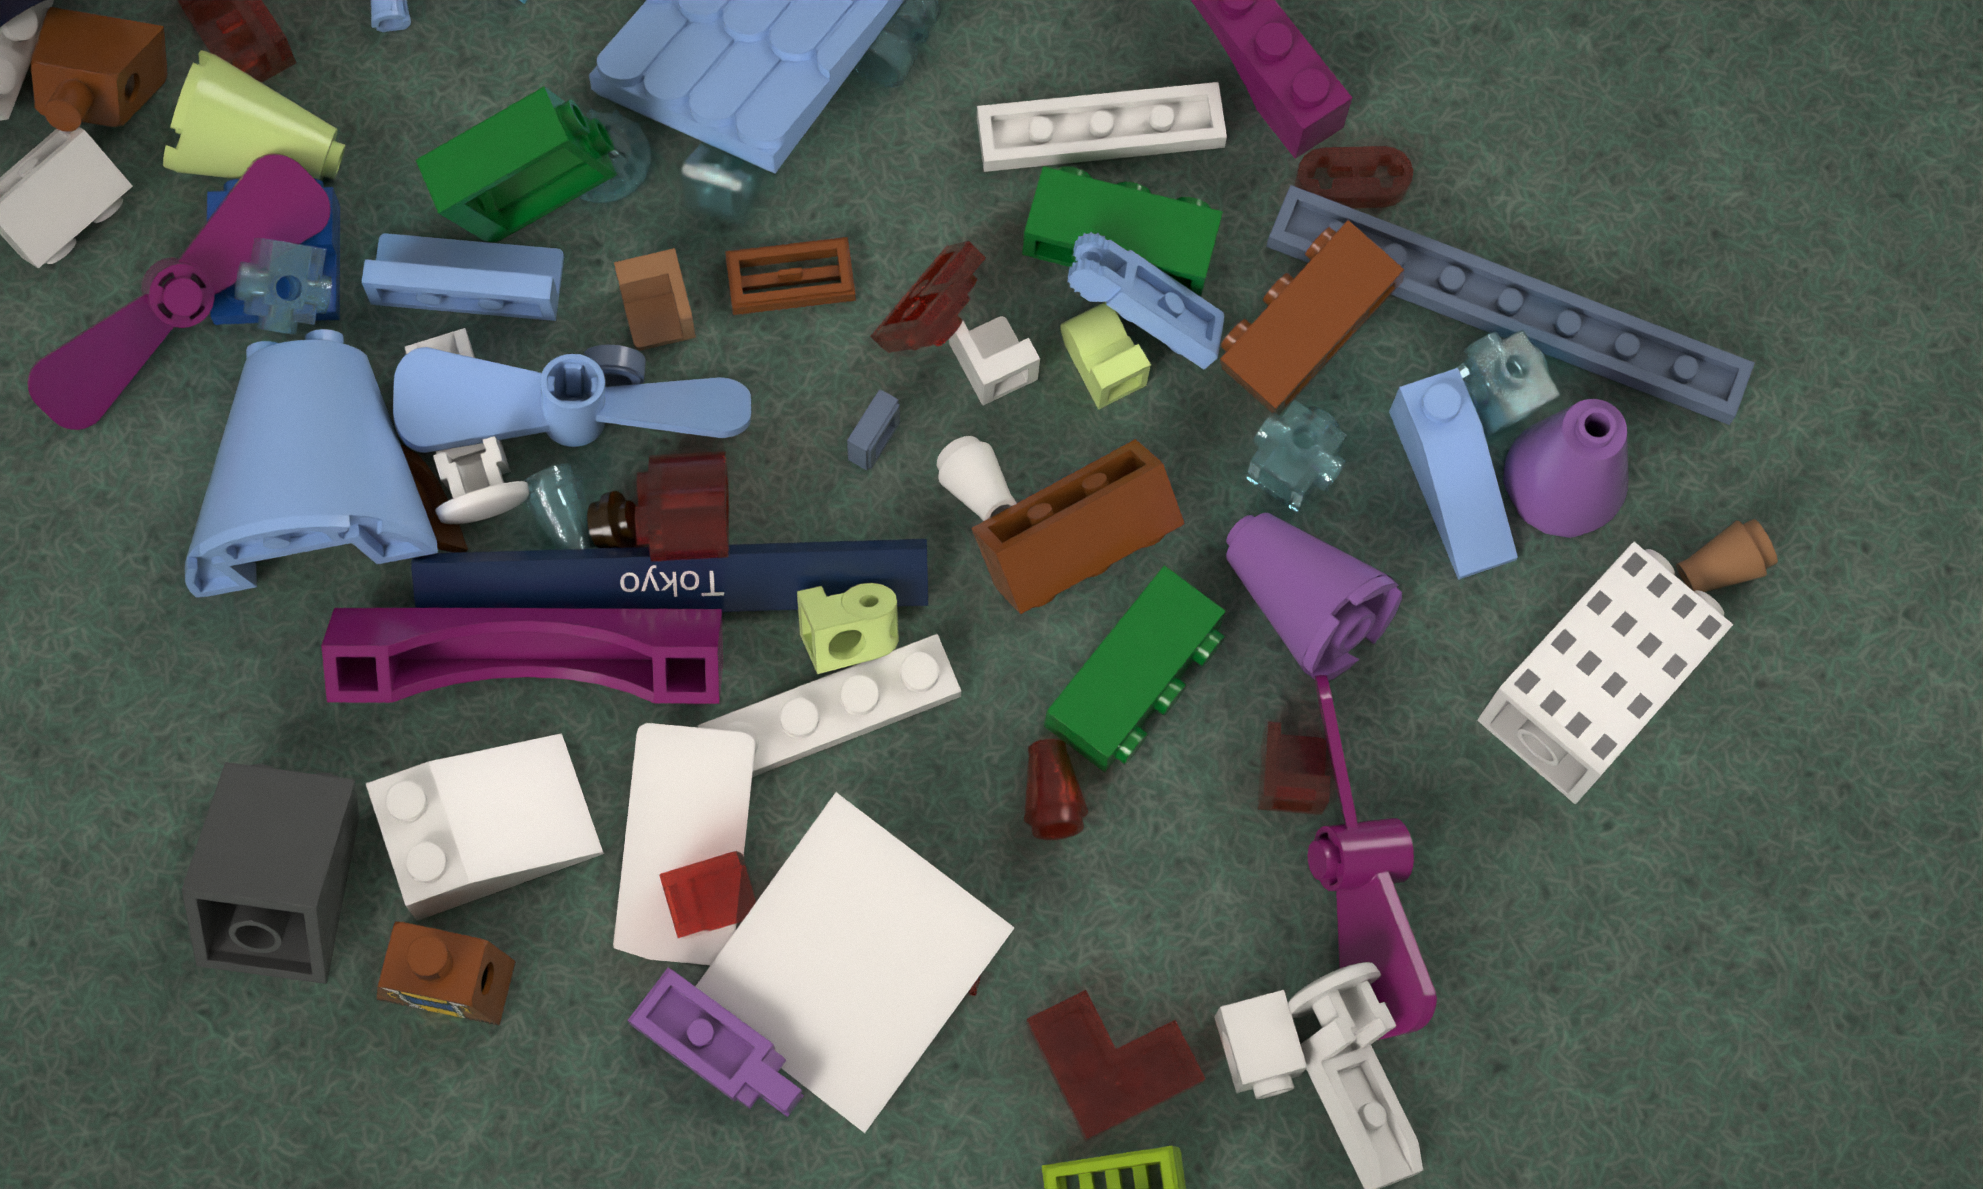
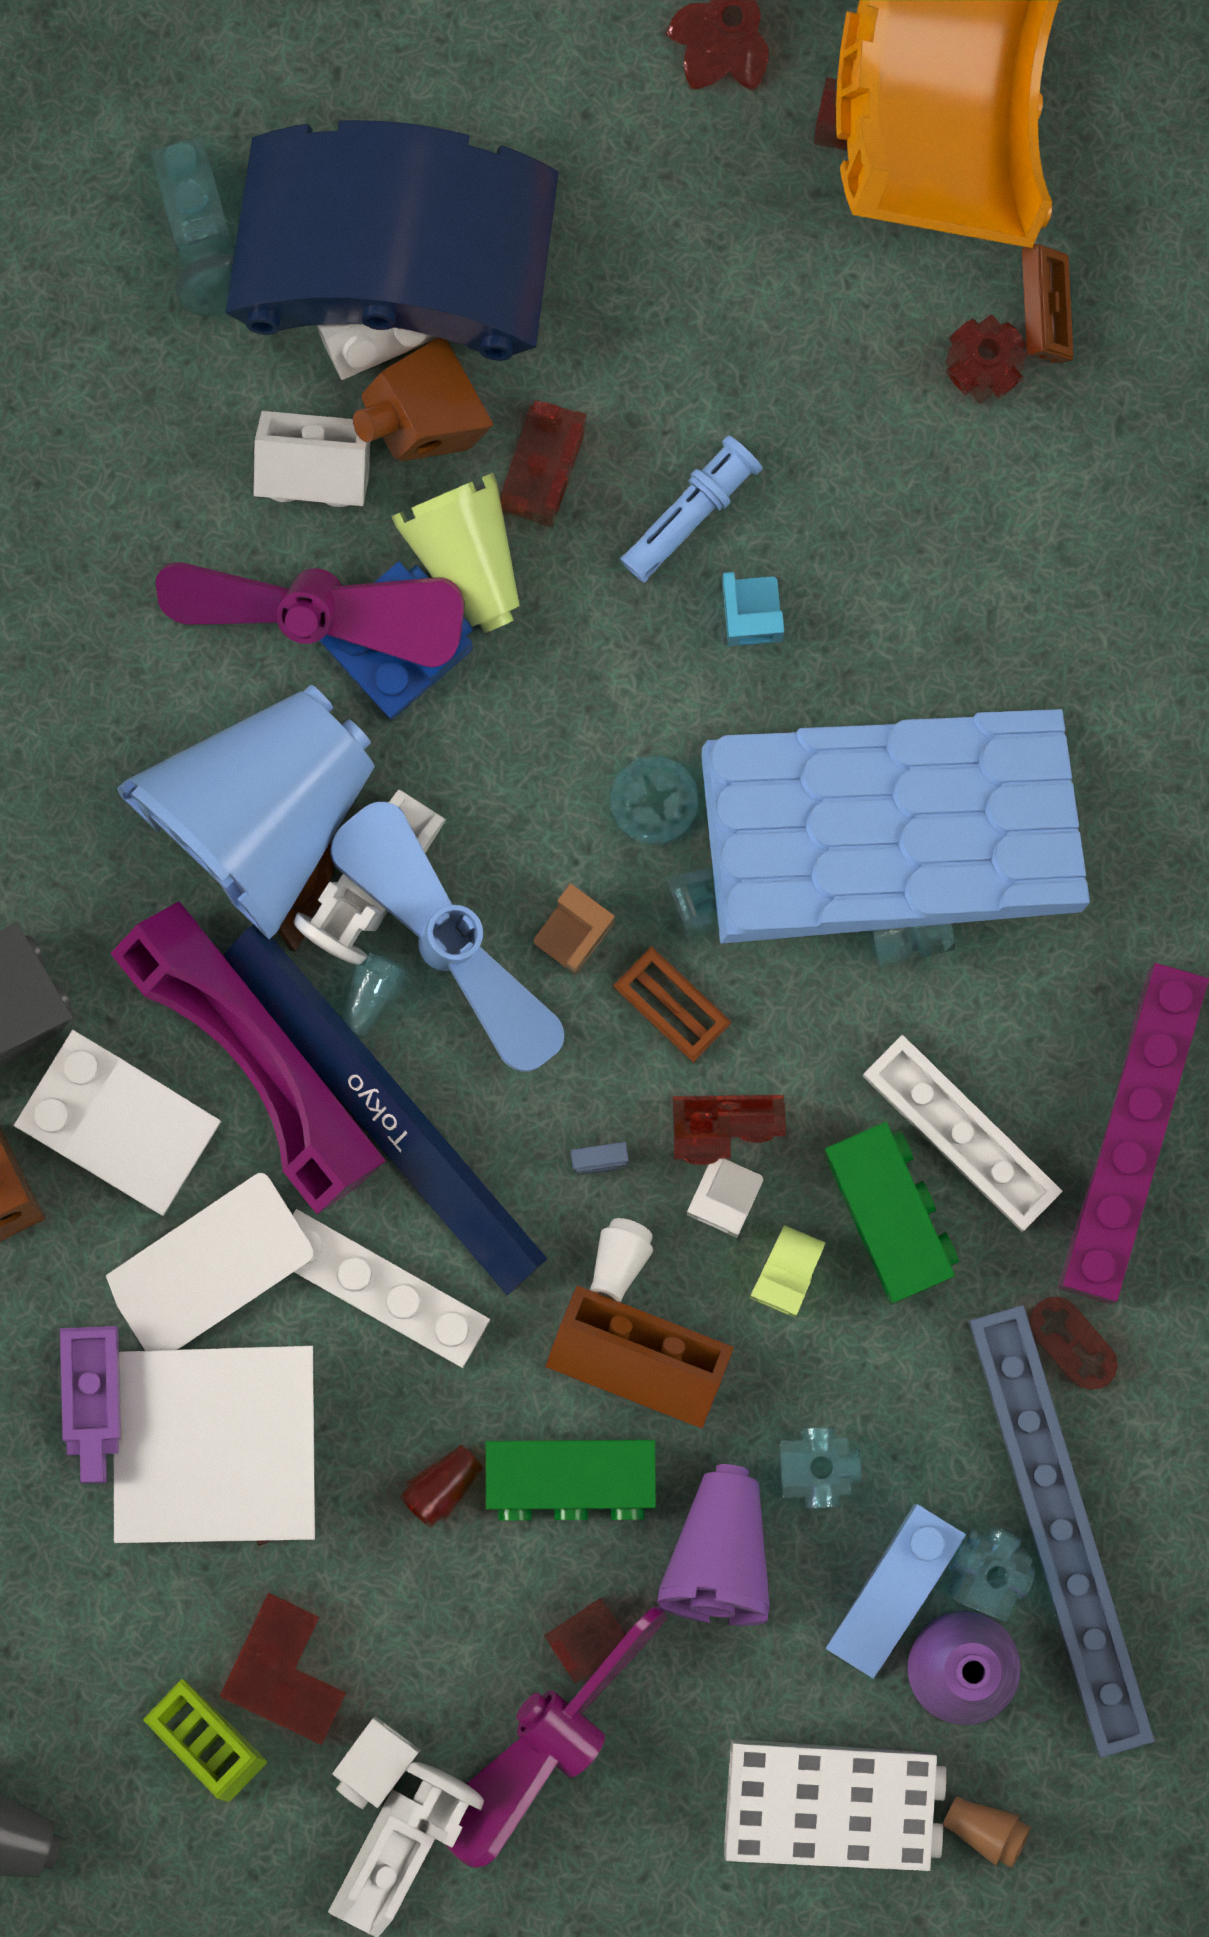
camera: 60 degrees right, 10 degrees up
(301, 267) = (366, 678): clear light blue brick -> none
(464, 276) = (490, 781): light blue panel -> none
(517, 165) = (581, 762): green window -> none
(612, 521) = (391, 1035): dark brown plate -> none
(619, 364) = (501, 943): sand blue tile -> none
(684, 506) = (436, 1077): clear red brick -> none
(708, 894) = (182, 1313): clear red panel -> none
(848, 625) = (443, 1256): yellowish green leg -> none
(1147, 298) = (846, 1276): light blue hinge -> none
(1310, 316) = (926, 1398): dark orange brick -> none

